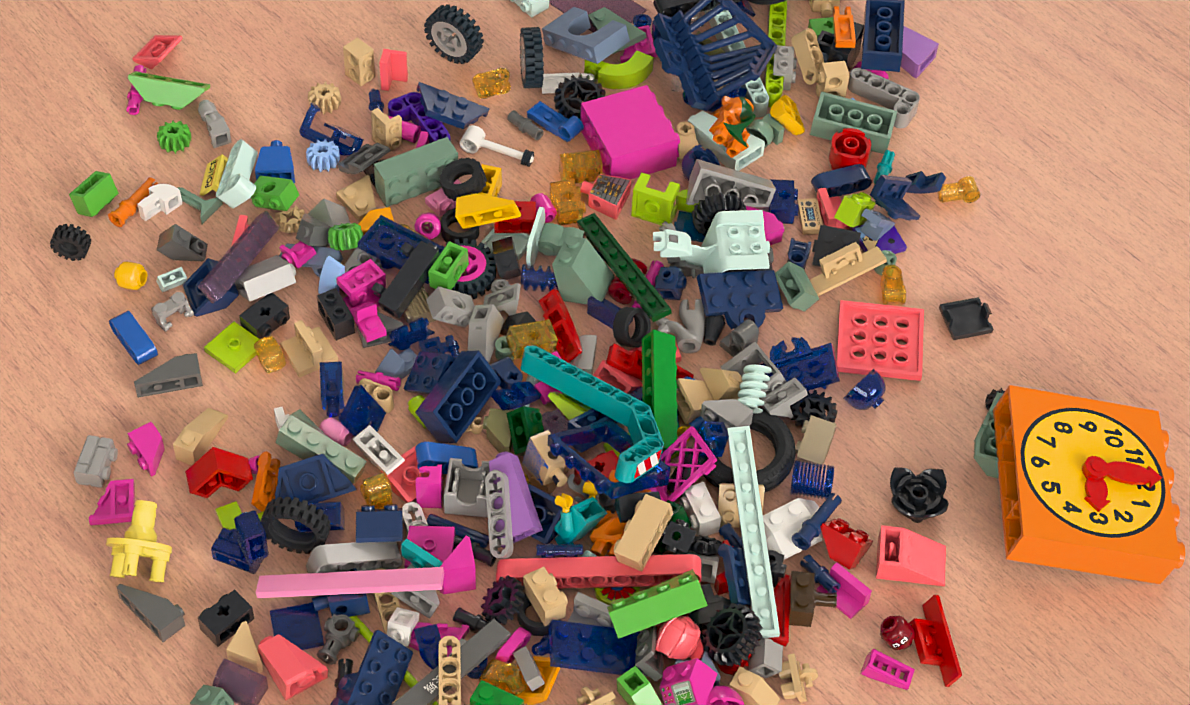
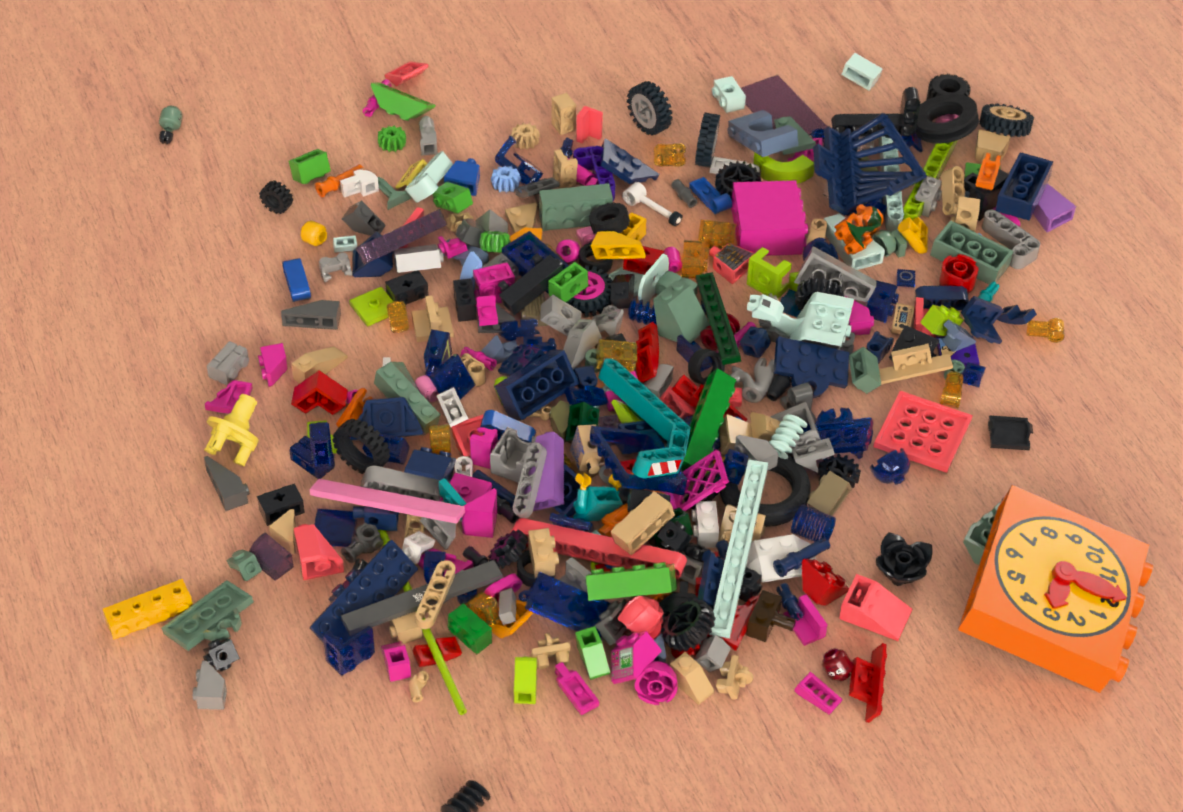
camera: 20 degrees right, 5 degrees down
(794, 167) = (905, 278): none -> clear blue tile
(907, 261) = (973, 374): none -> clear blue bracket

